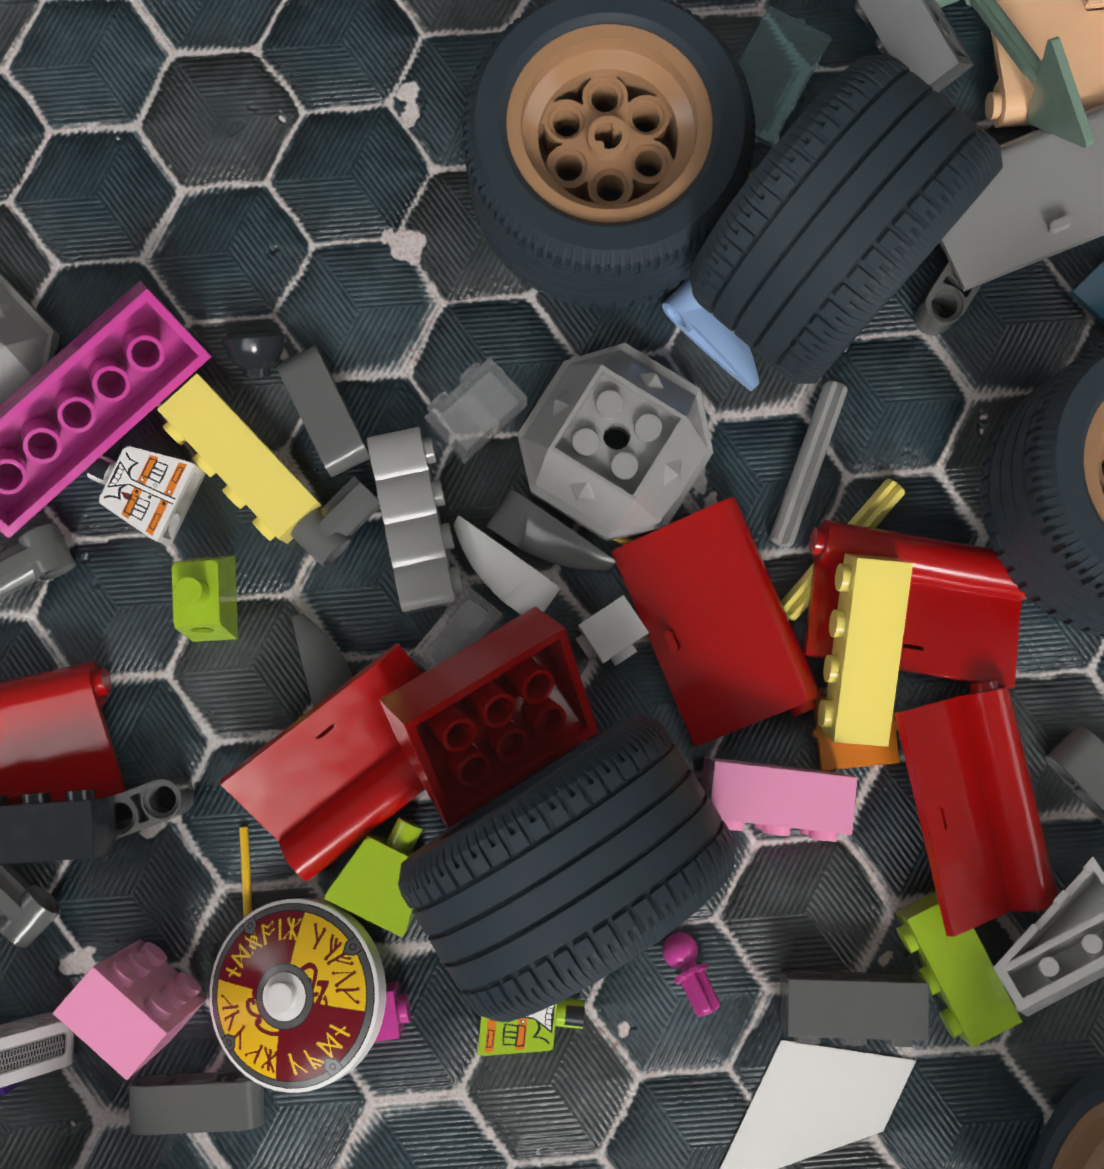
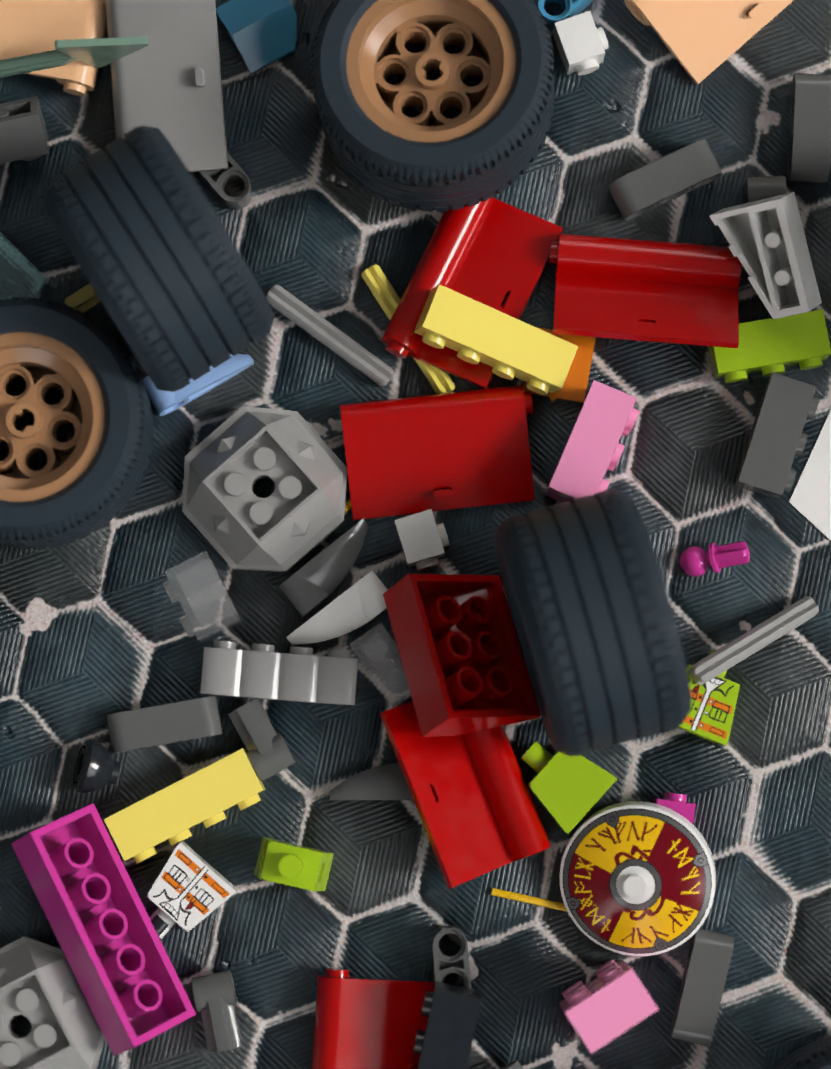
camera: 75 degrees left, 0 degrees up
(613, 1055) = (753, 640): none -> light grey axle

